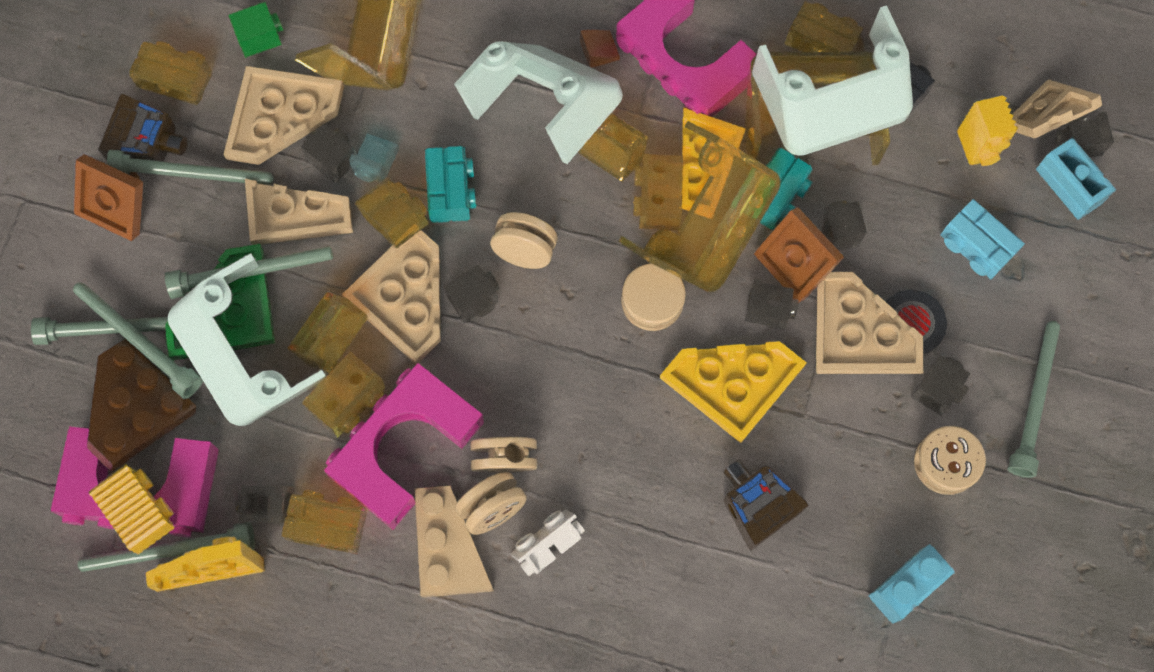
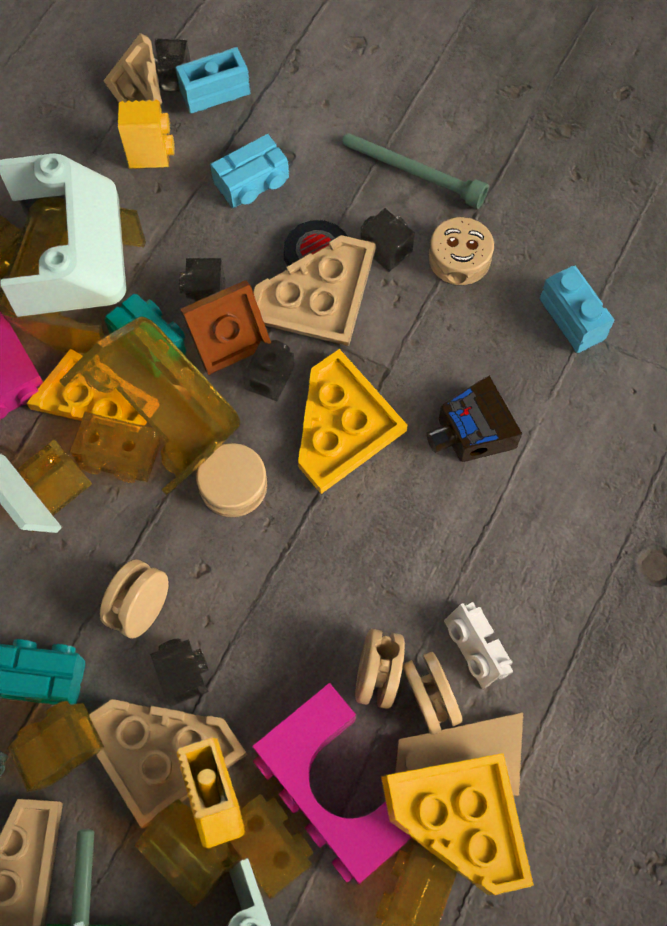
camera: 75 degrees left, 5 degrees down
(370, 334) = (210, 792): none -> yellow brick
(387, 545) = (465, 819): none -> yellow plate

